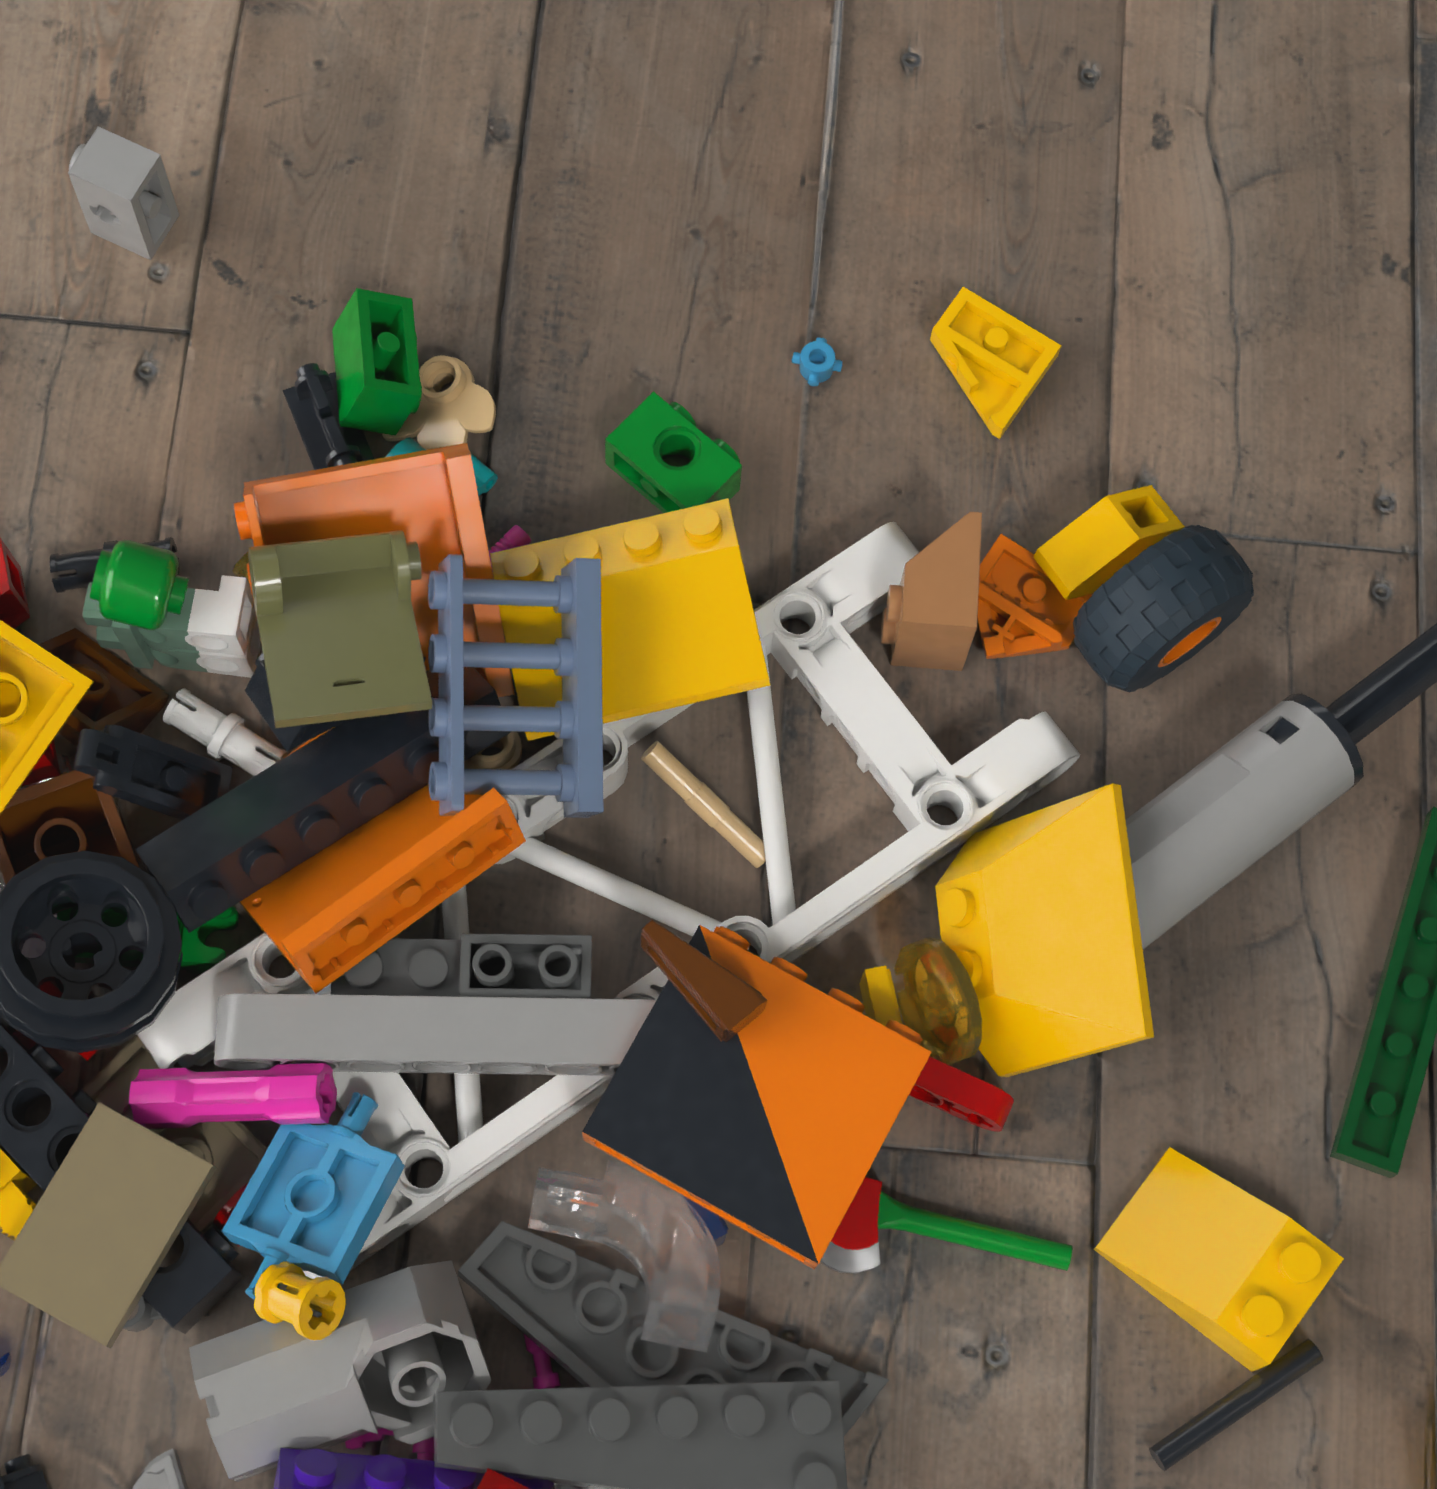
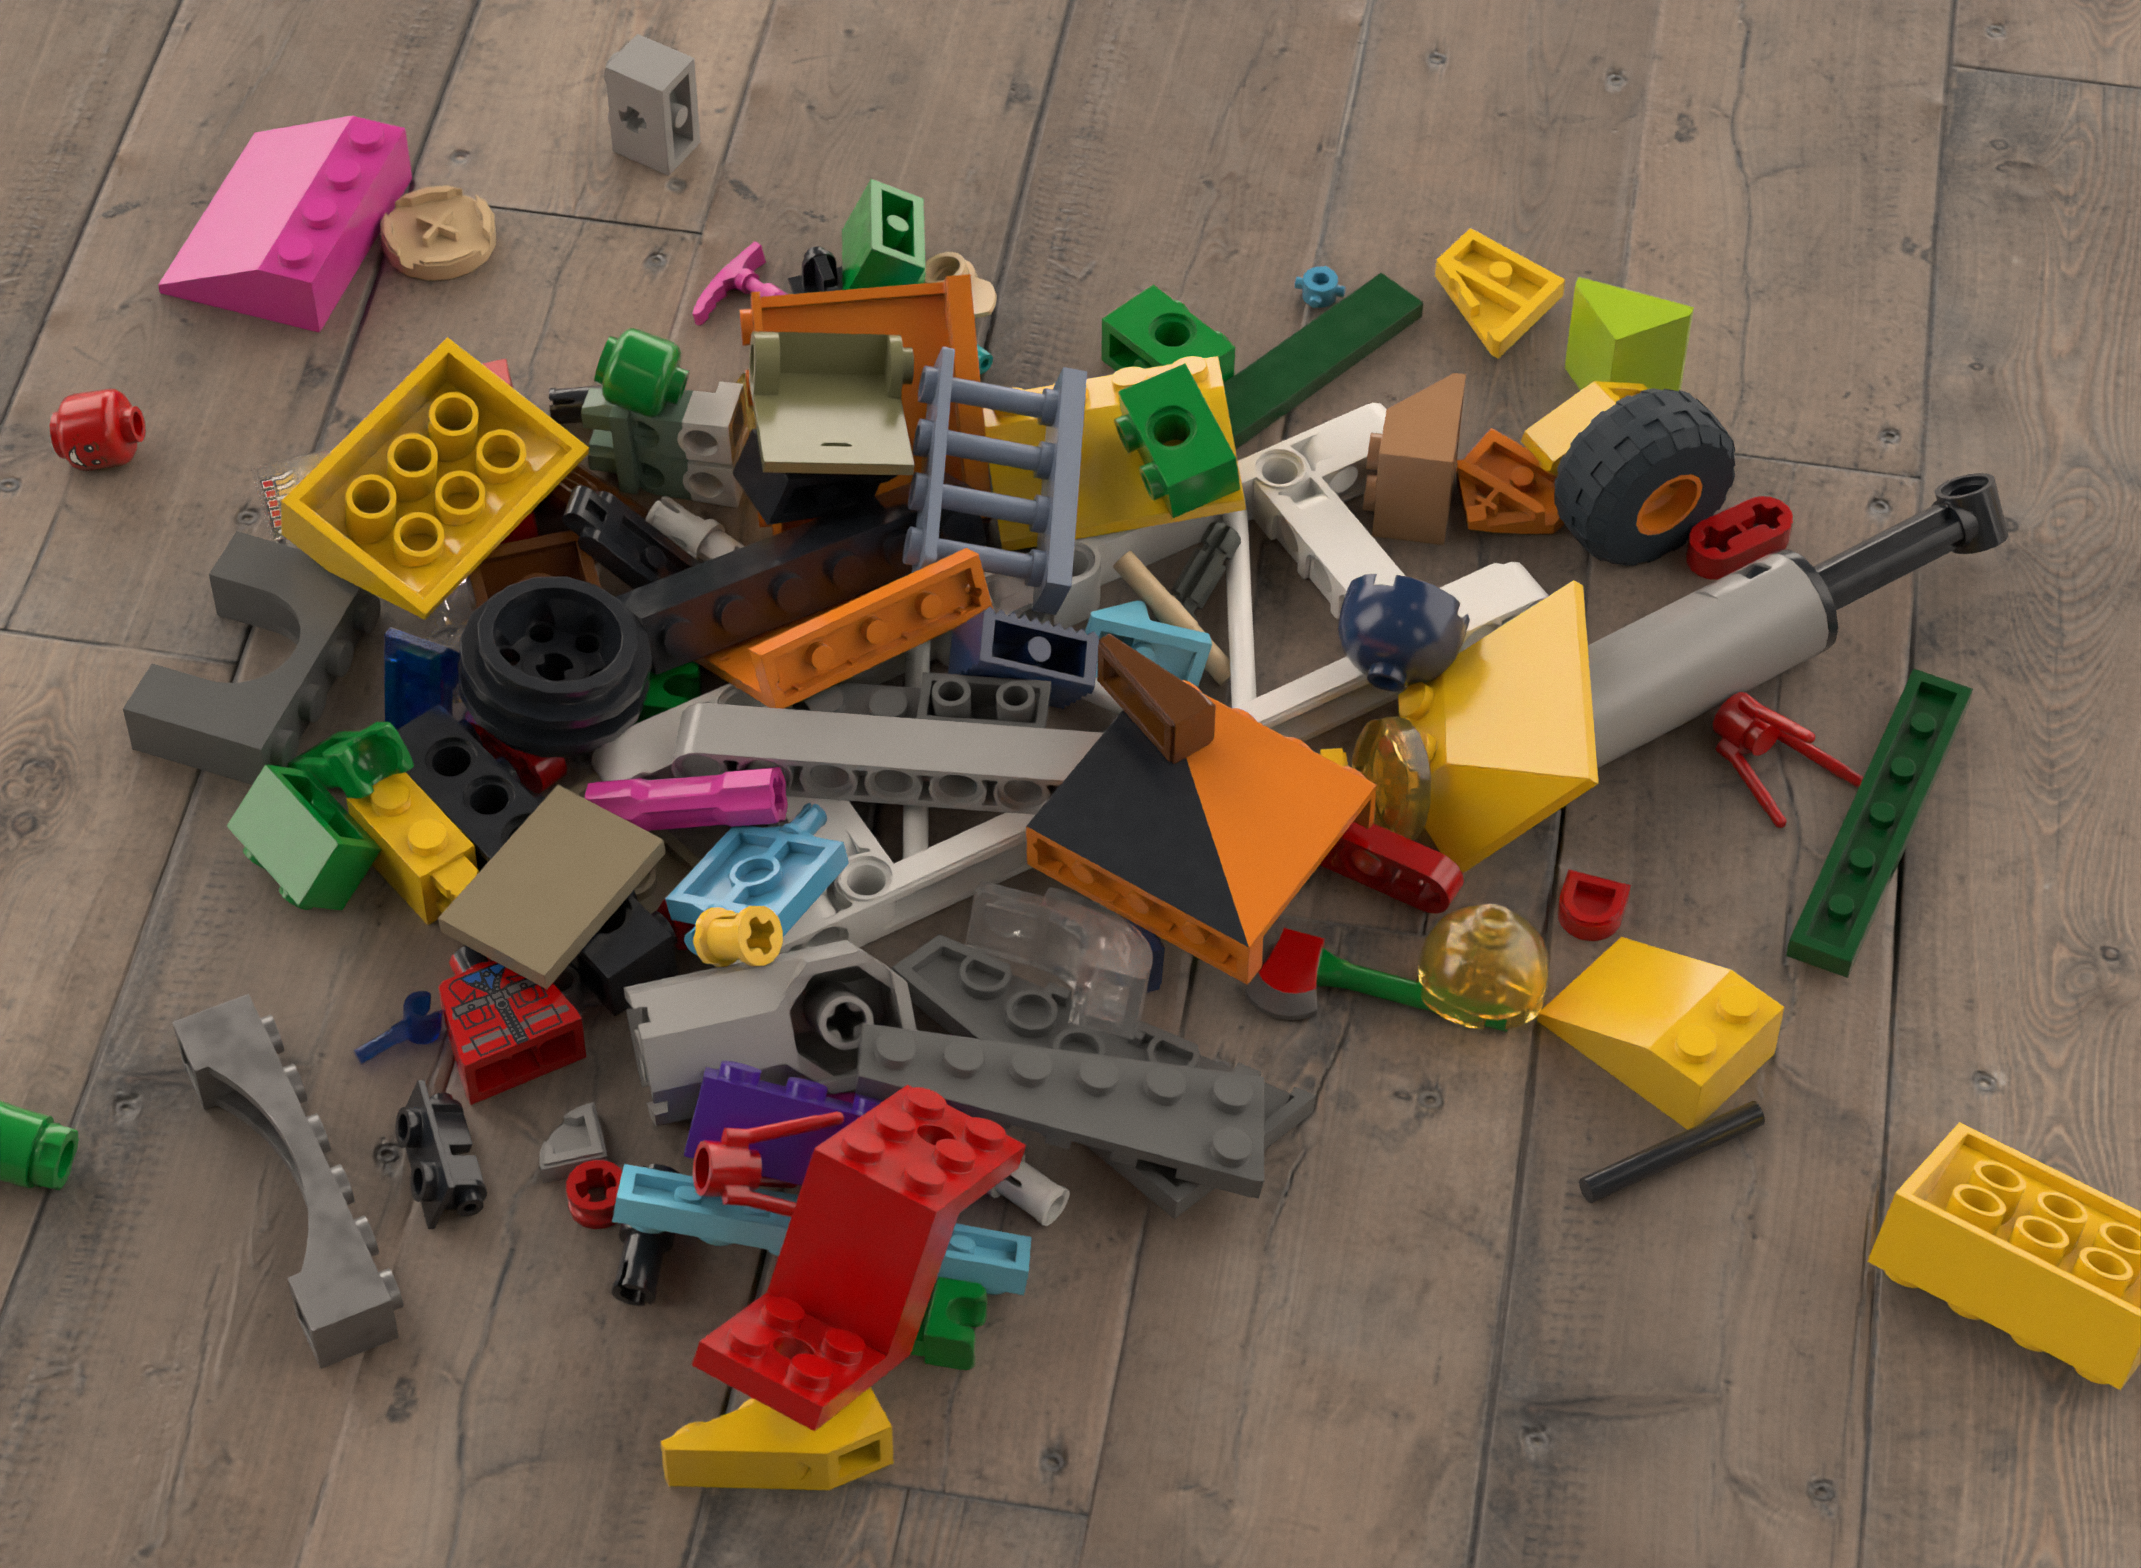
camera: 10 degrees right, 20 degrees down
(67, 1376) = (505, 1026): none -> red torso
(230, 388) = (738, 275): none -> dark pink piece
(560, 899) = (1026, 649): none -> dark blue brick
(675, 854) = (1169, 646): none -> medium azure slope
(688, 589) = (1175, 409): none -> green brick
(730, 741) = (1205, 566): none -> pearl dark grey axle
(819, 449) = (1317, 355): none -> dark green tile
(937, 848) = (1400, 630): none -> dark blue cylinder
(1042, 1218) = (1484, 967): none -> clear yellow cylinder
(1128, 436) = (1626, 337): none -> lime slope
(1137, 1110) = (1592, 906): none -> red tile
(1258, 656) = (1735, 532): none -> red beam
(1280, 887) = (1755, 729): none -> red plant

